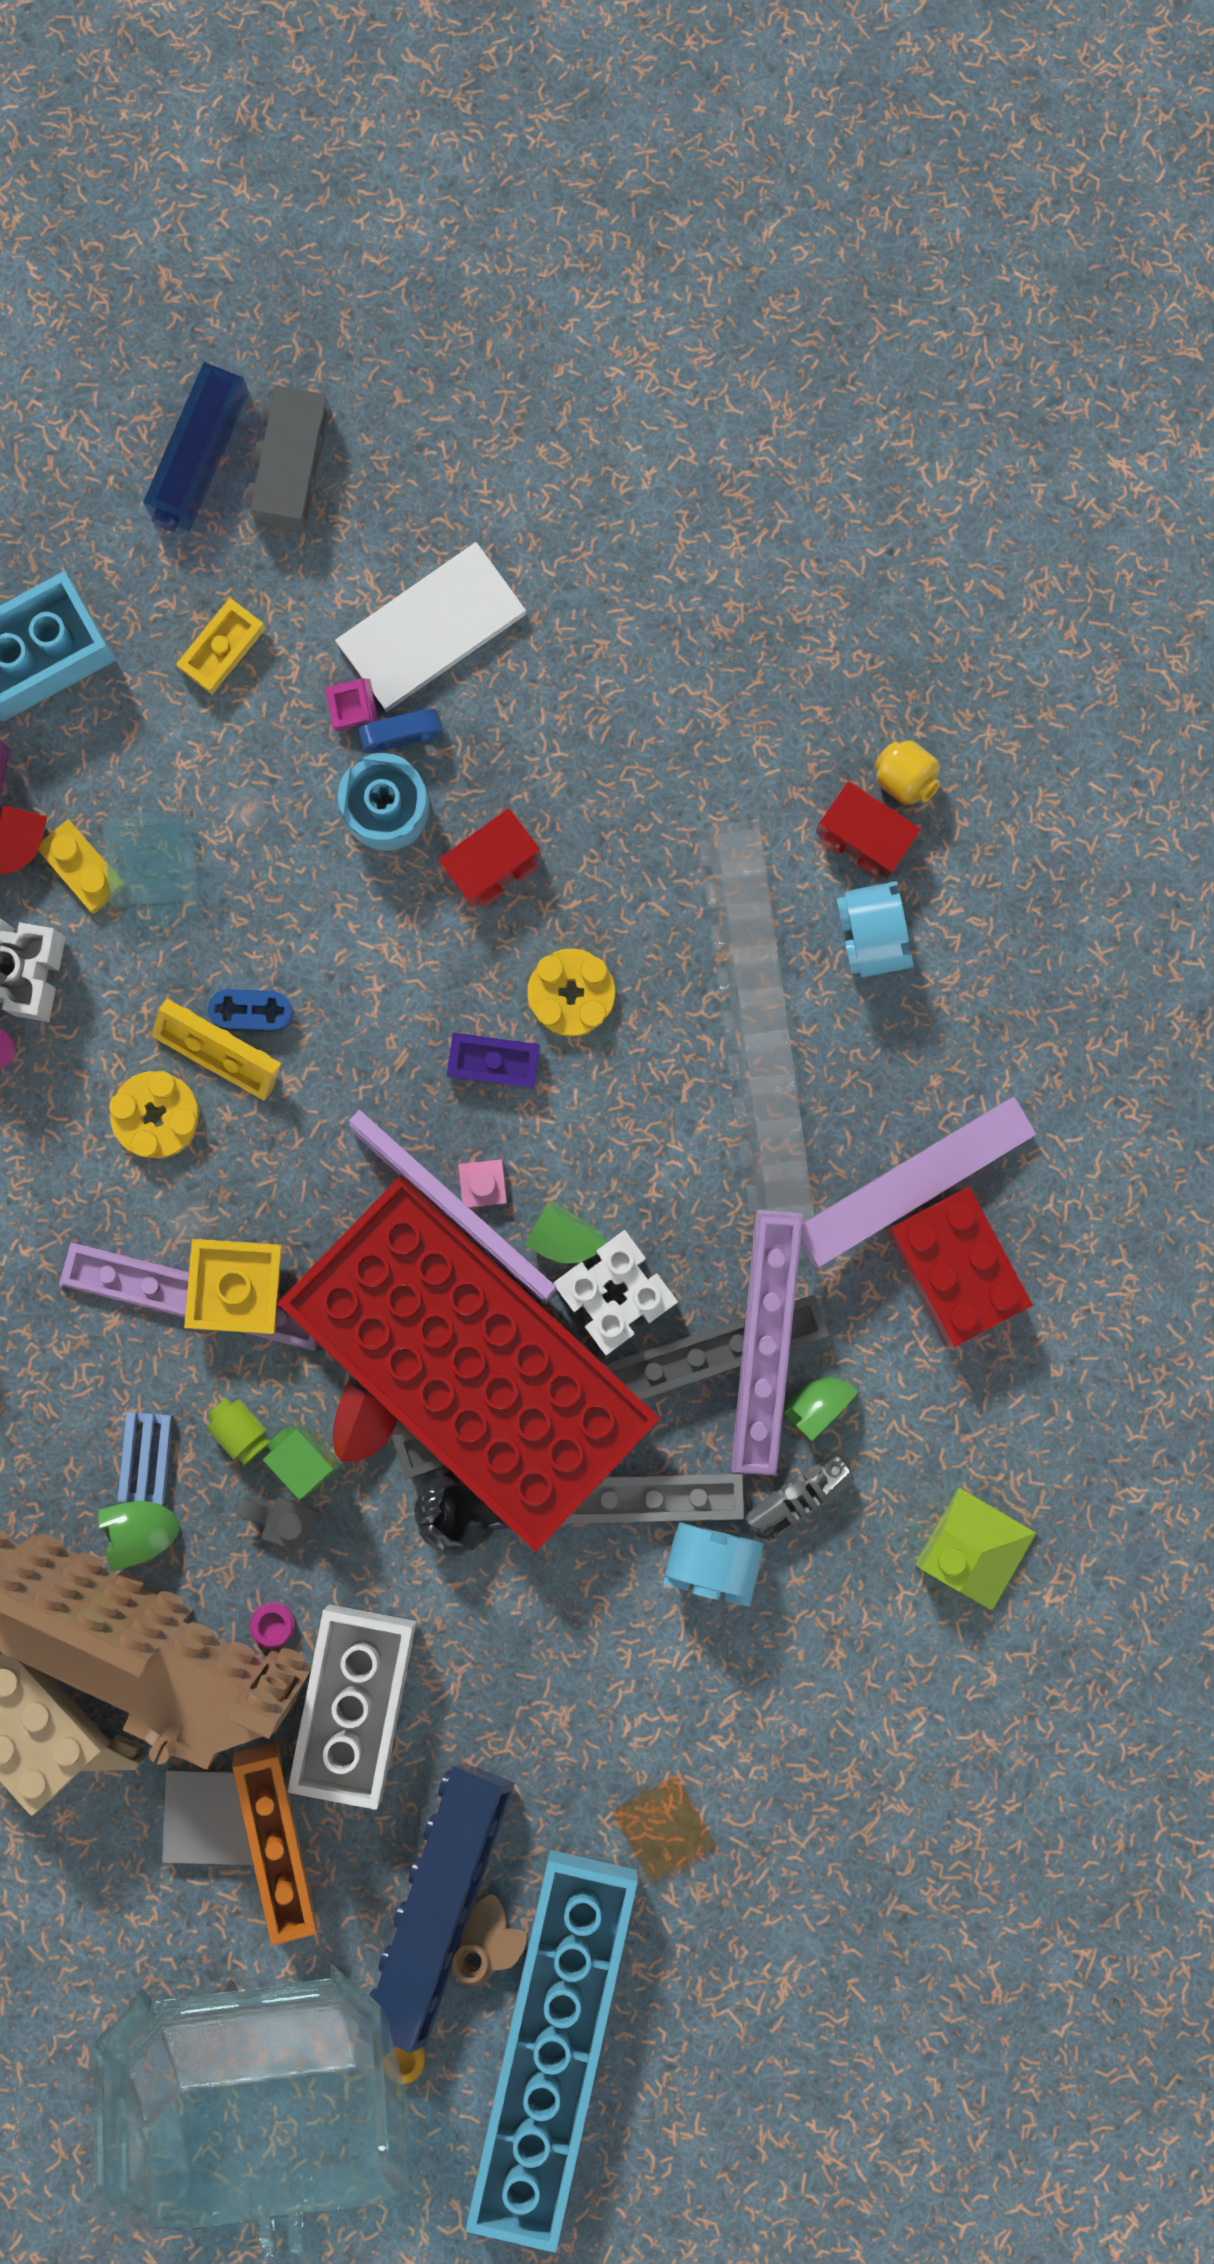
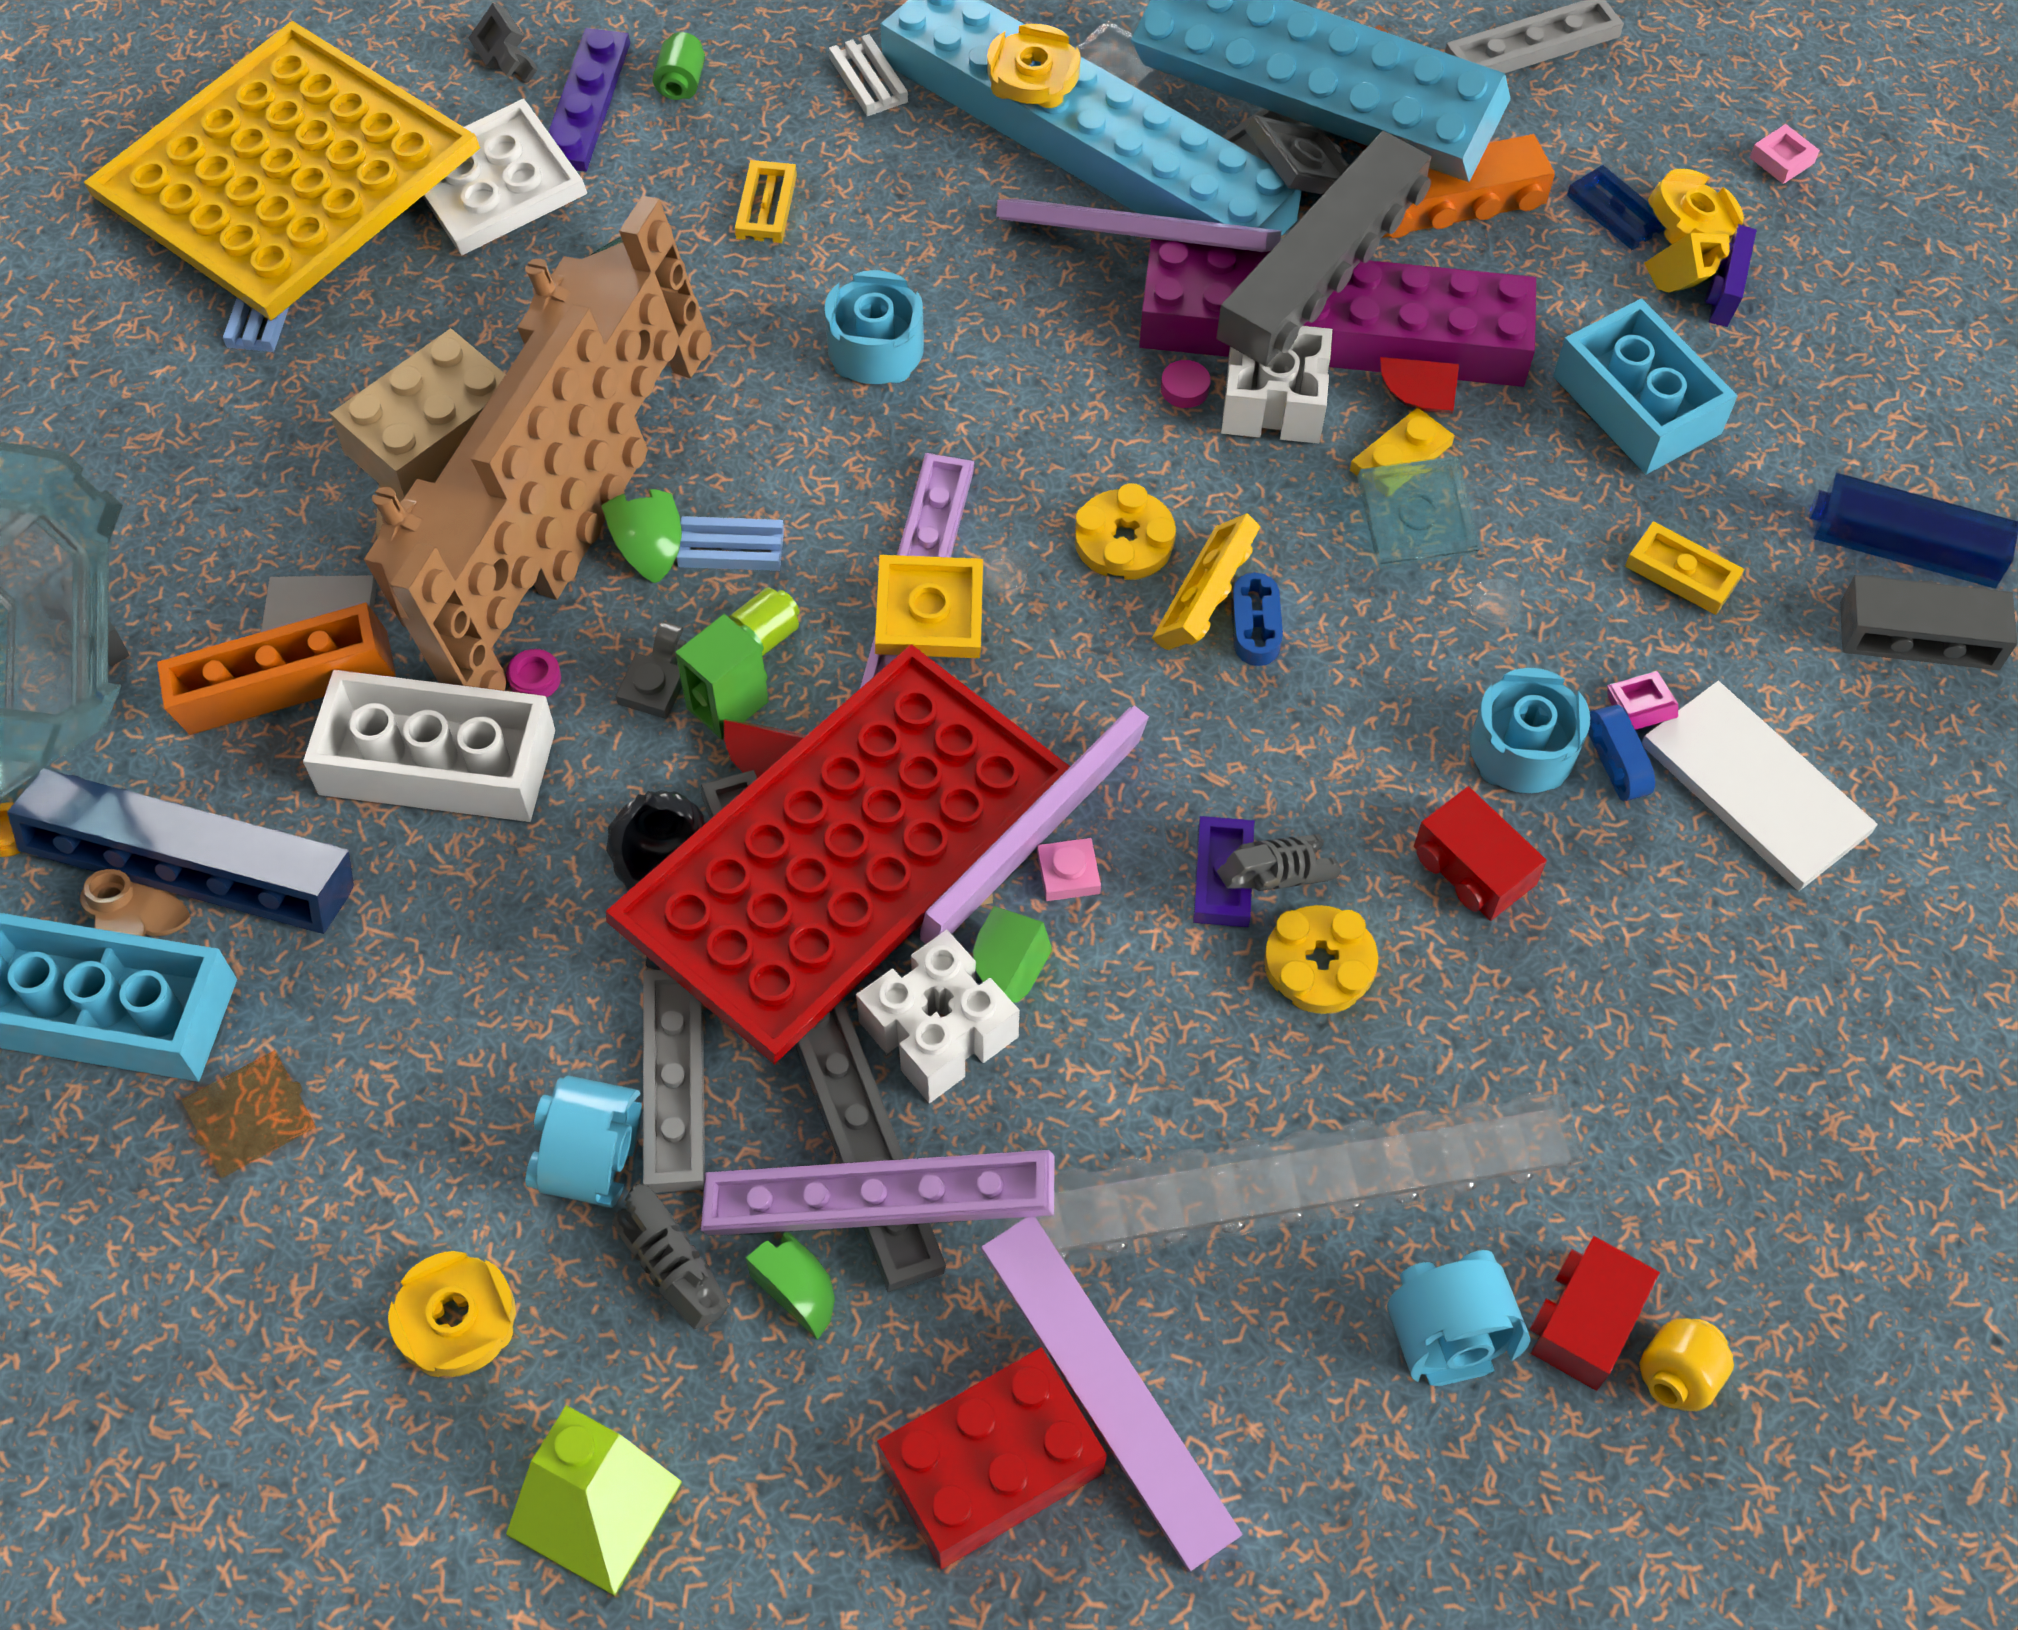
camera: 85 degrees right, 25 degrees down
(497, 1017) = (1278, 864): none -> dark grey hinge
(825, 1682) = (483, 1330): none -> yellow plate

